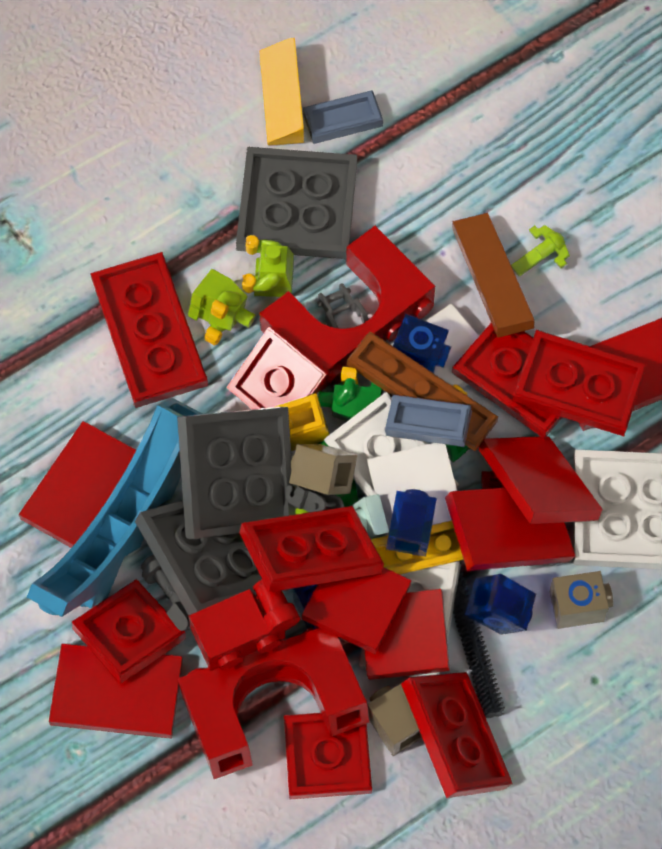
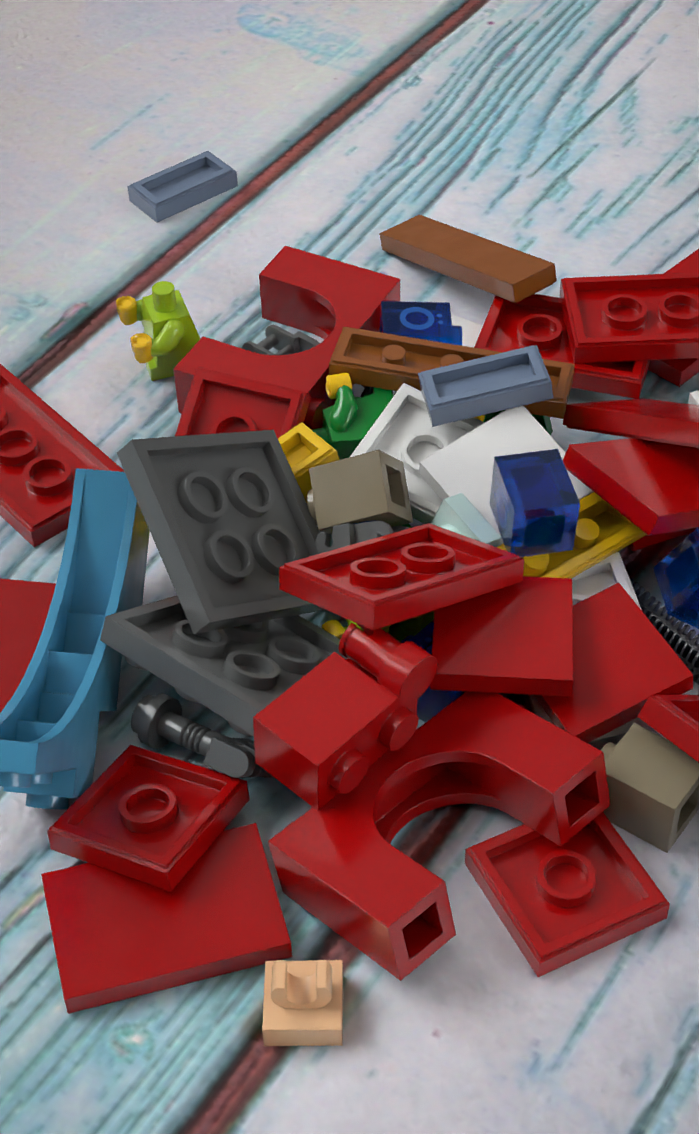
camera: 20 degrees left, 20 degrees down
(165, 768) = (303, 1003): none -> light nougat tile
(220, 304) = (110, 387): lime piece -> none
(281, 93) = (95, 182): yellow slope -> none
(298, 200) = (185, 247): dark grey plate -> none
(553, 242) = (517, 222): lime piece -> none

